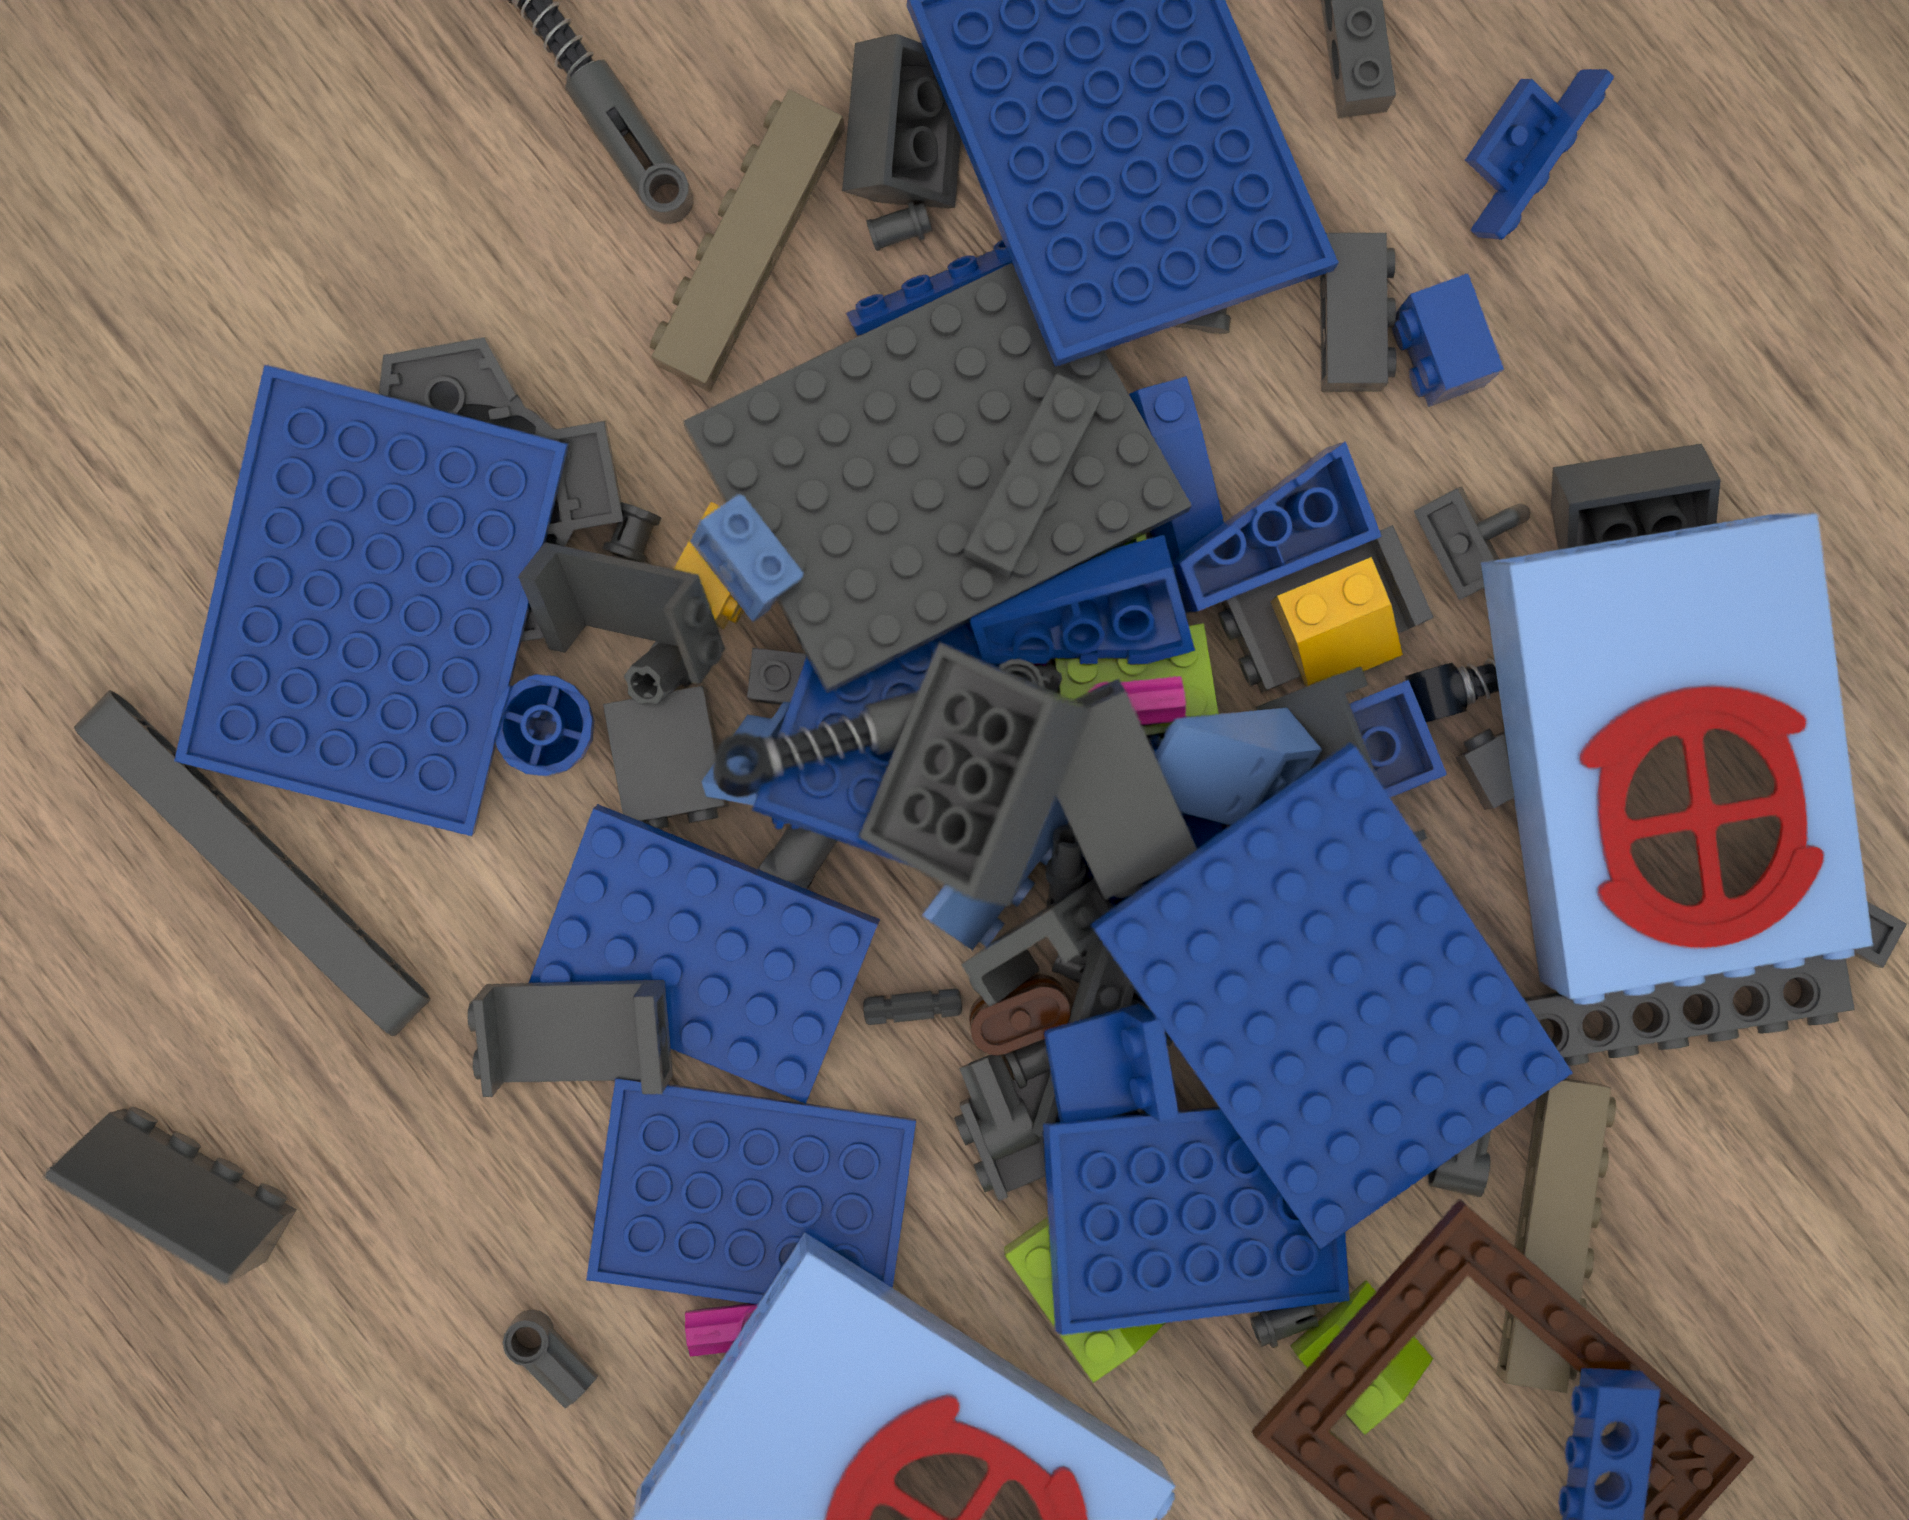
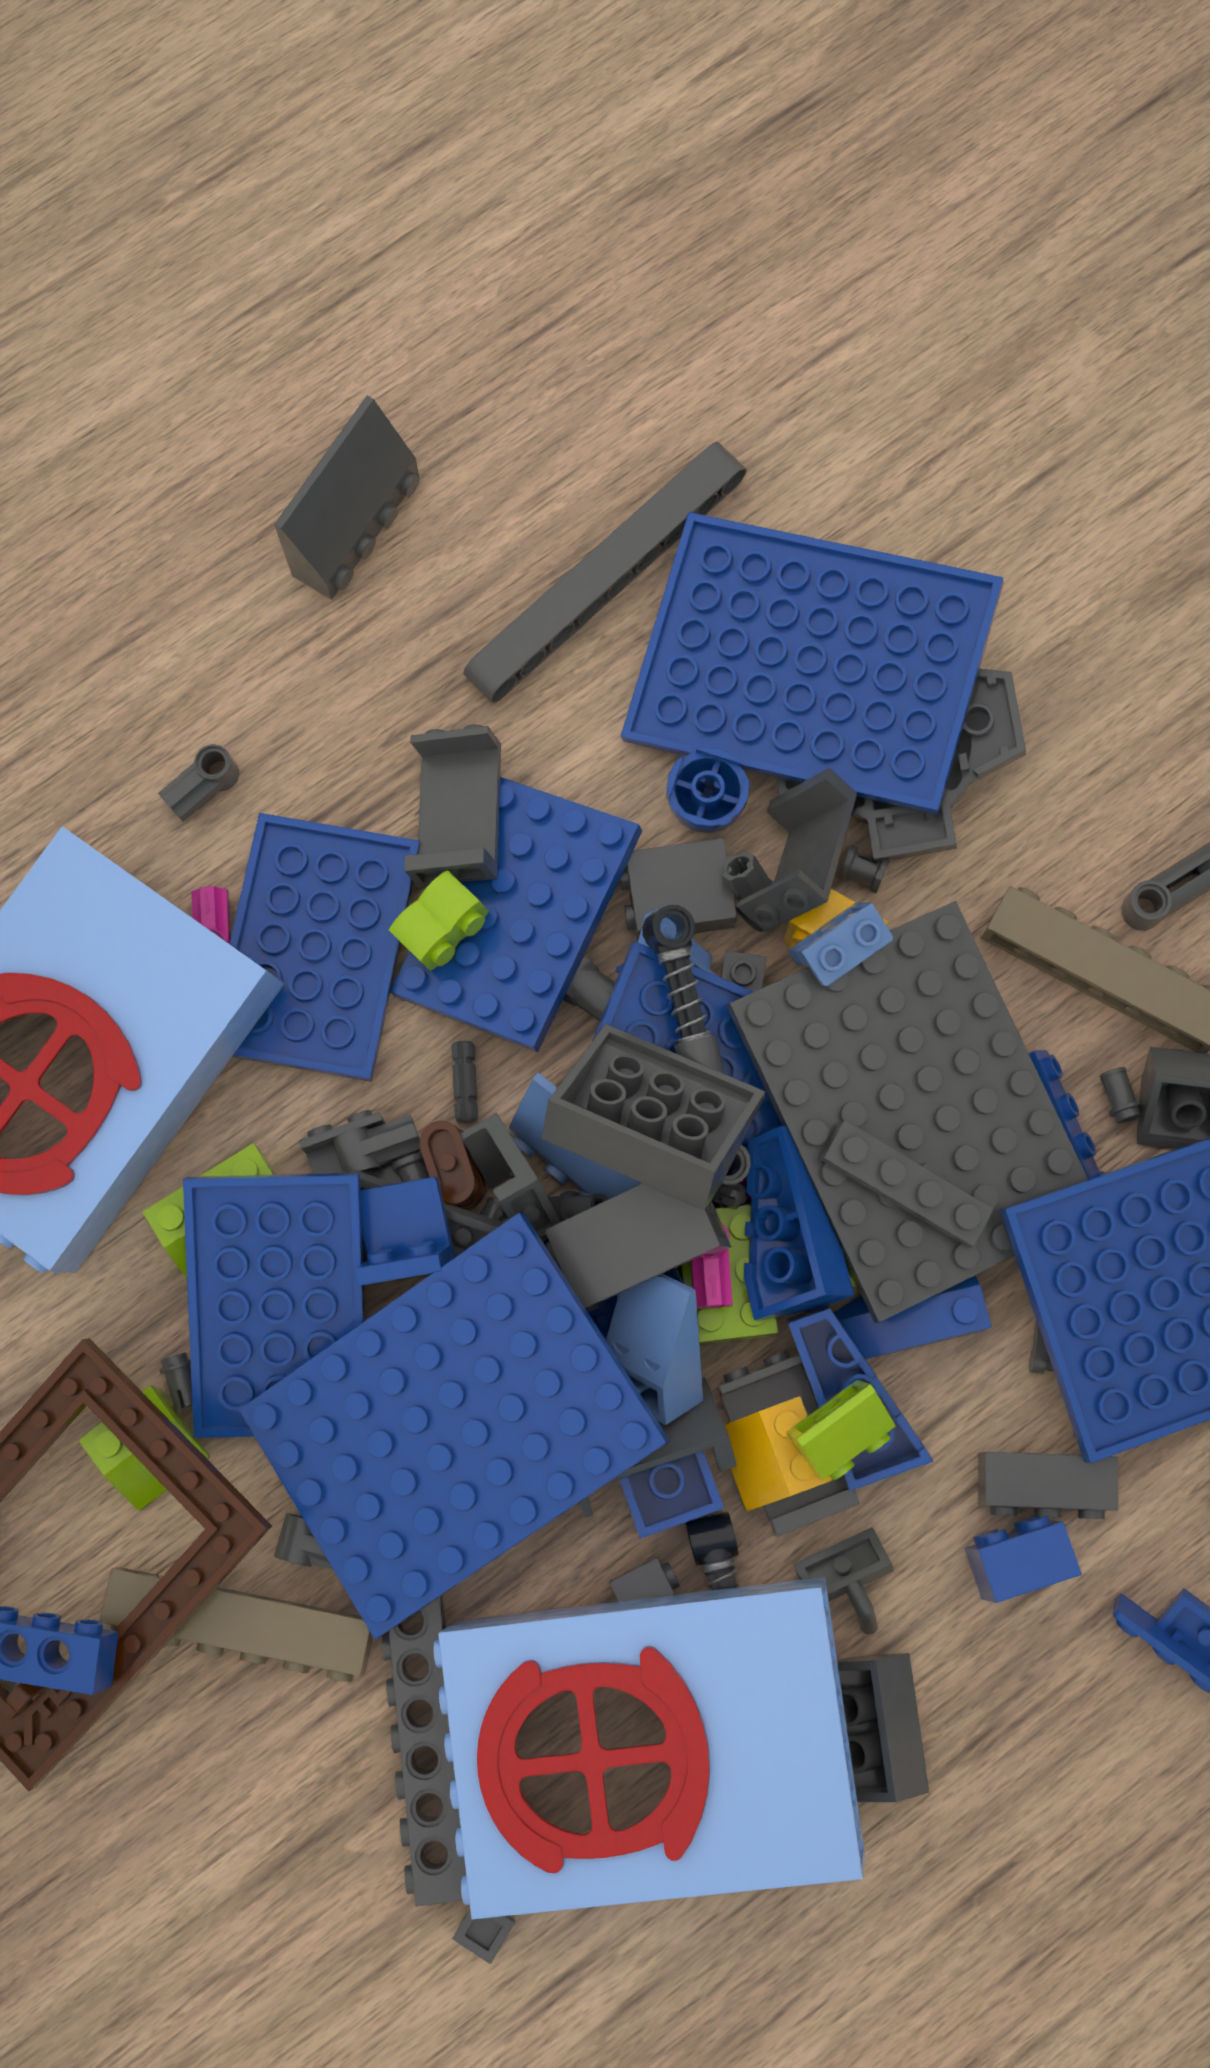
camera: 90 degrees right, 10 degrees down
(723, 1047) = (439, 921): none -> lime brick
(1322, 547) = (842, 1430): none -> lime slope

